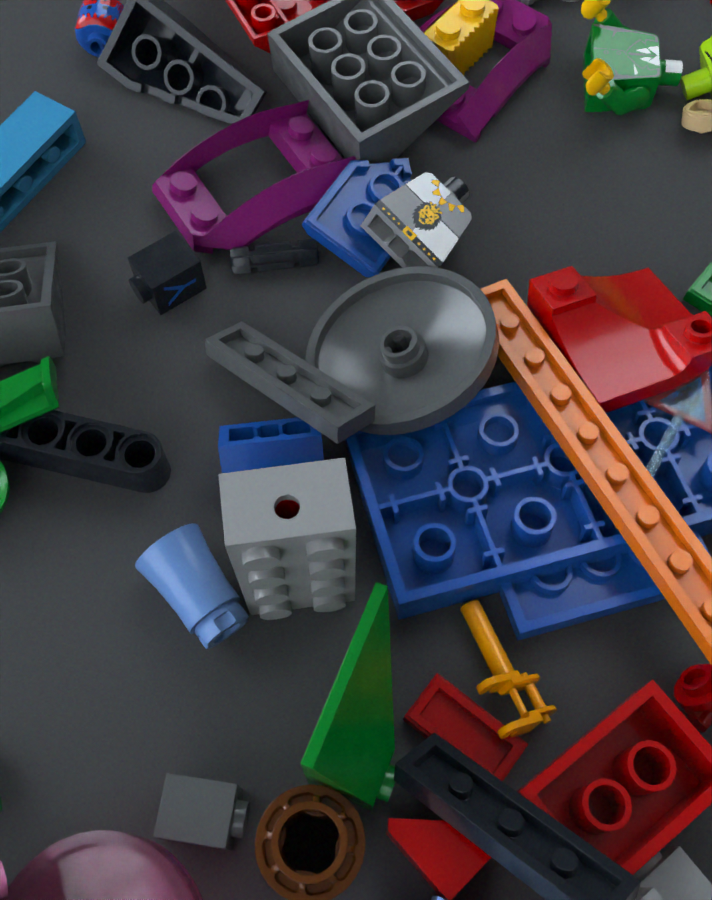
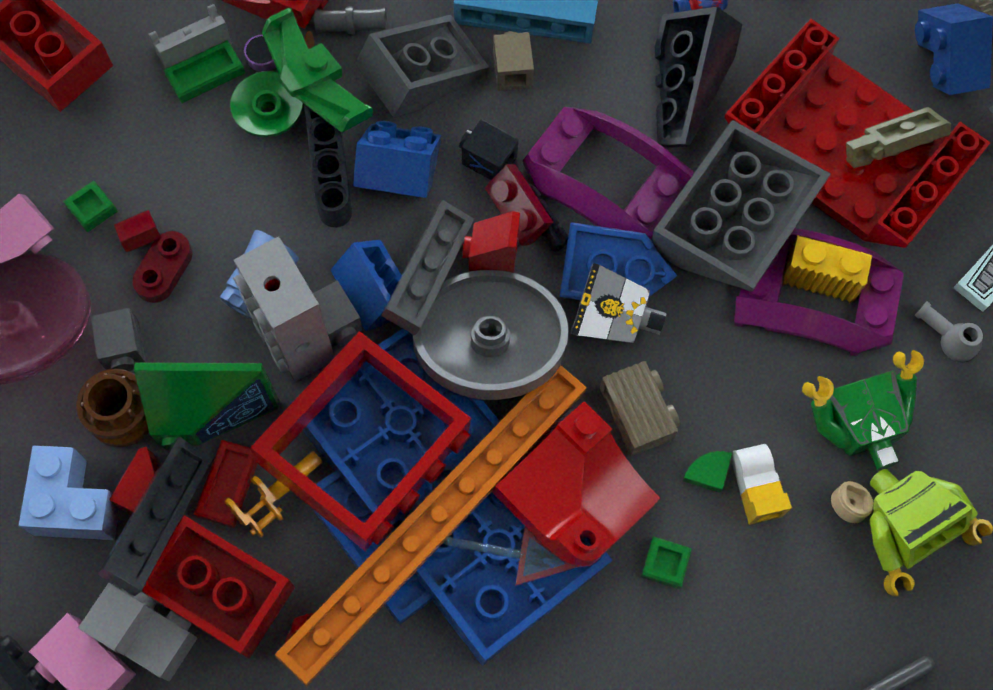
camera: 65 degrees right, 5 degrees up
(45, 729) = (137, 231): none -> dark red tile
(67, 209) = (513, 61): none -> dark tan brick
(112, 713) = (165, 265): none -> dark red plate
(124, 369) = (396, 159): none -> blue slope
(249, 269) = (513, 193): none -> dark red plate
(293, 298) = (493, 243): none -> red slope
(433, 593) = (313, 399): none -> red window
(542, 244) = (639, 408): none -> dark tan brick
(630, 217) = (709, 471): none -> green tile
(664, 178) = (759, 484): none -> leg

